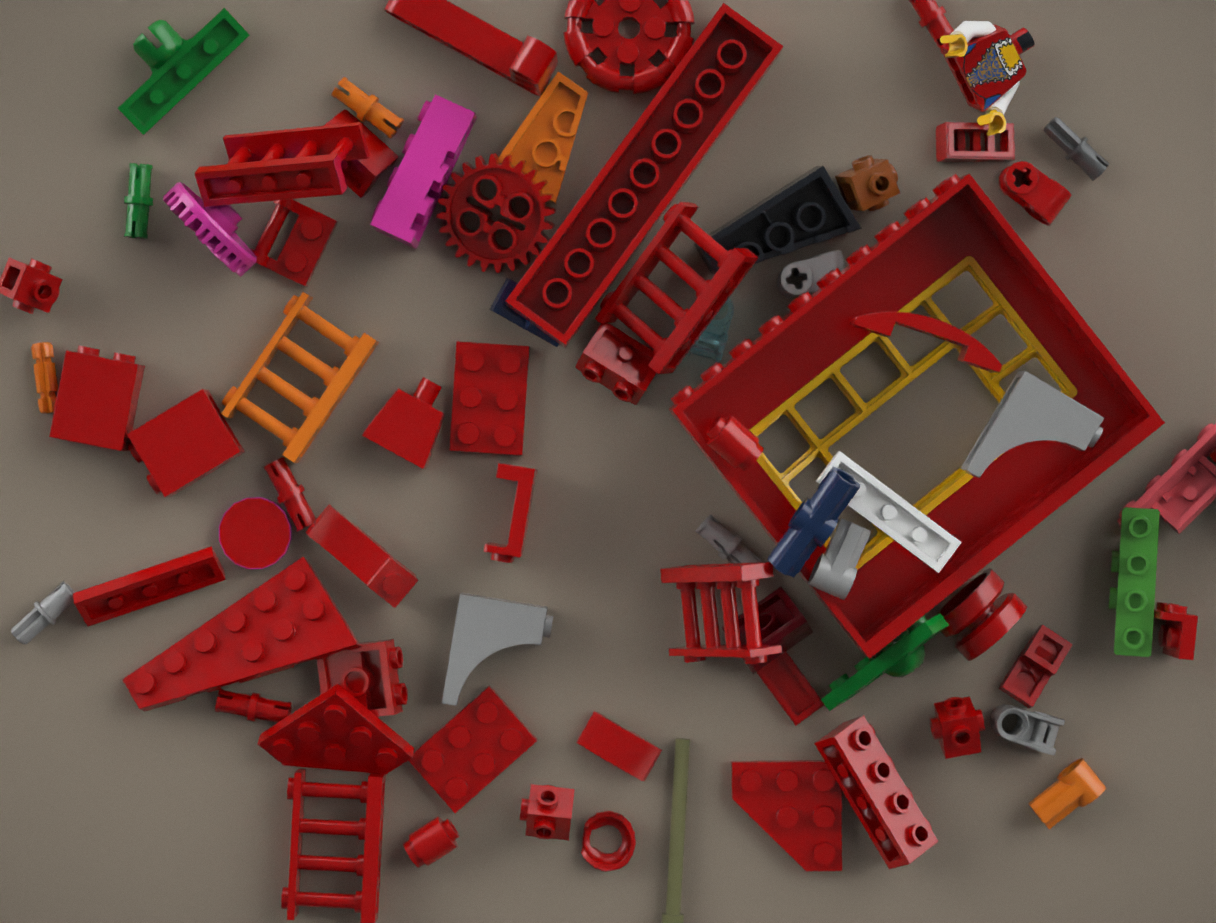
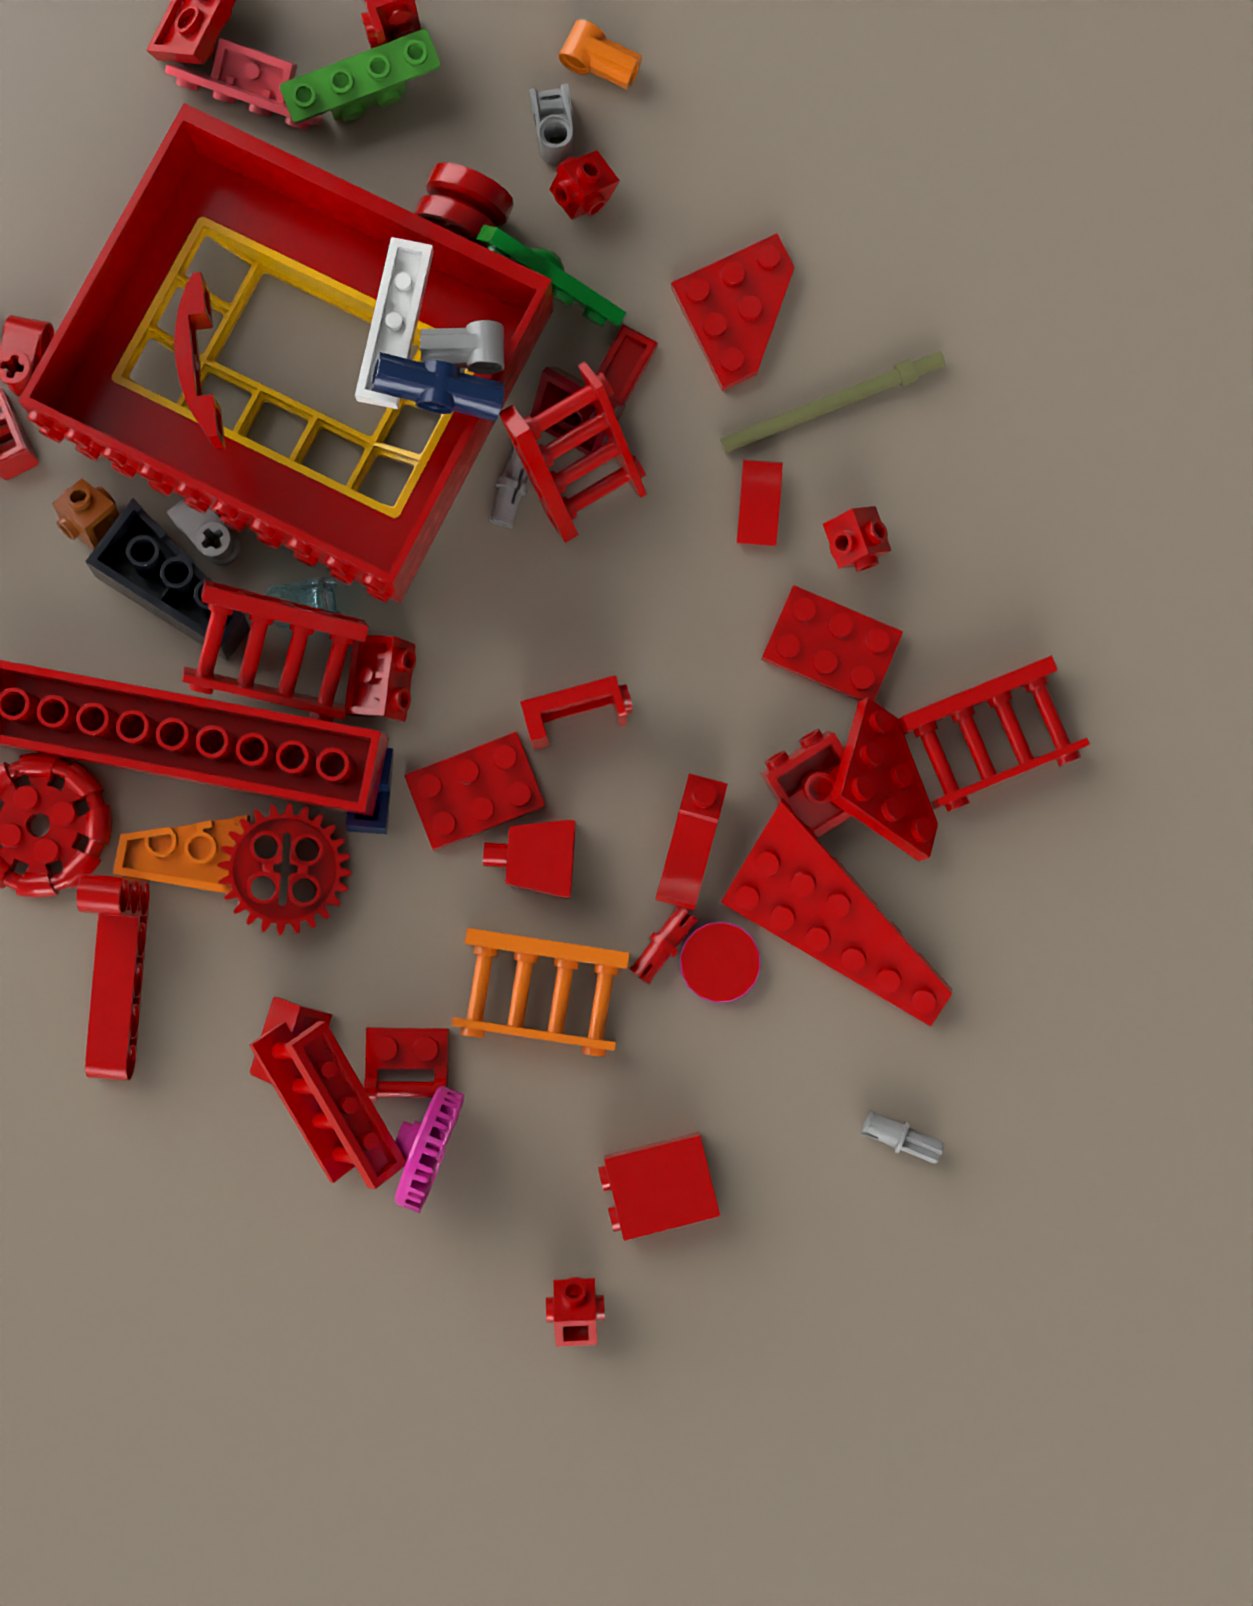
camera: 115 degrees left, 5 degrees down
(45, 376) = (662, 1251): orange axle -> none
(138, 200) = (438, 1240): green pin -> none
(149, 586) = (824, 1043): red plate -> none
(178, 66) = (280, 1264): green plate -> none
(184, 444) = (663, 1075): red brick -> none
(252, 706) = (894, 882): red pin -> none
(367, 107) = (237, 1050): orange pin -> none
(423, 171) = (275, 961): dark pink wedge -> none
(431, 842) = (942, 640): red brick -> none
(486, 627) = (706, 686): light grey arch -> none
(620, 857) = (860, 450): red piece -> none
(734, 442) = (395, 503): red brick -> none
(876, 792) = (684, 232): red brick -> none
(1029, 414) = (230, 230): light grey arch -> none
(1035, 666) = (488, 144): red slope -> none

